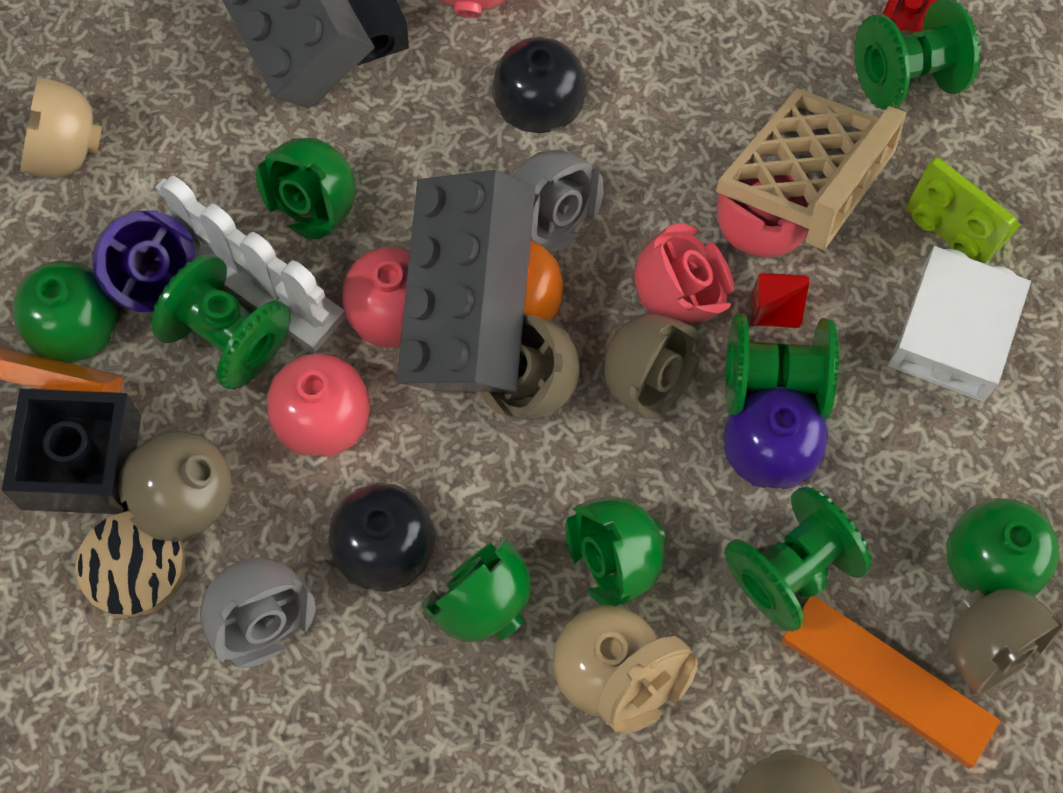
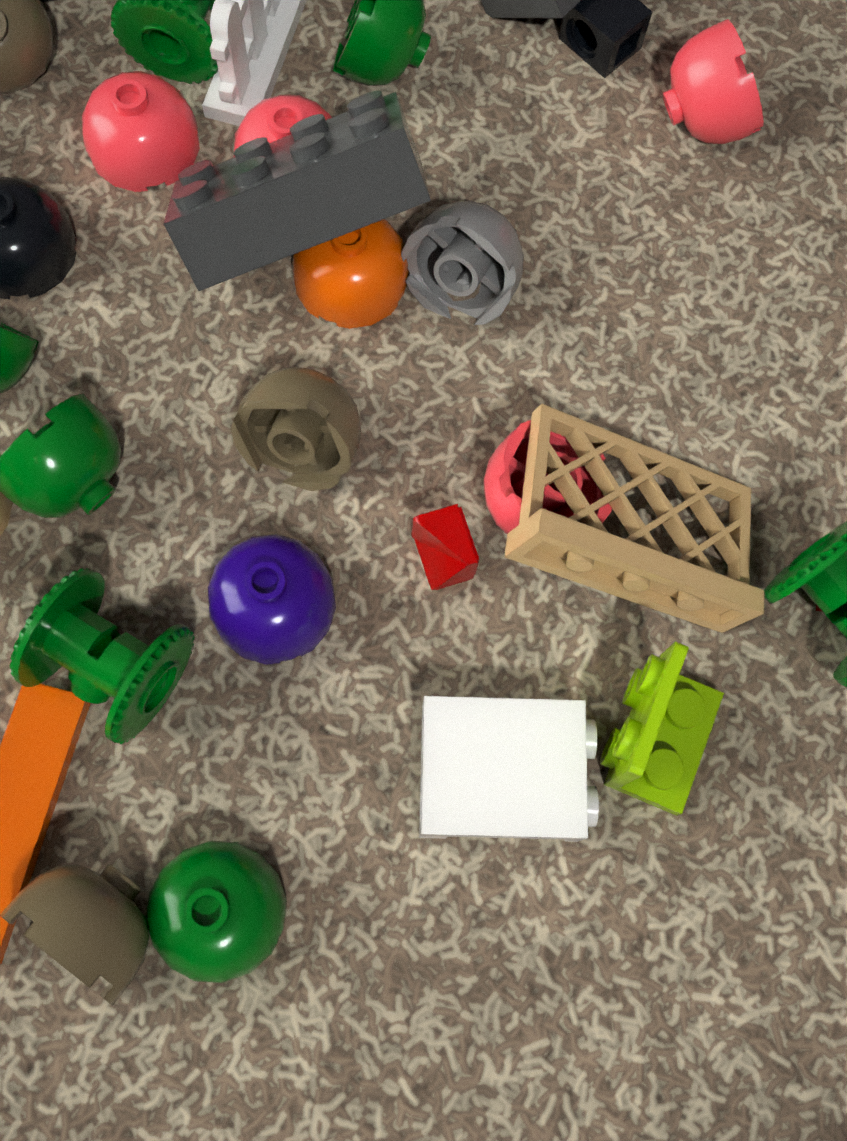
camera: 65 degrees right, 5 degrees up
(539, 85) = (614, 209): black cylinder -> none
(545, 374) = (246, 313): dark tan cylinder -> none
(683, 276) = (421, 424): coral cylinder -> none
(795, 366) = (334, 533): green hose -> none

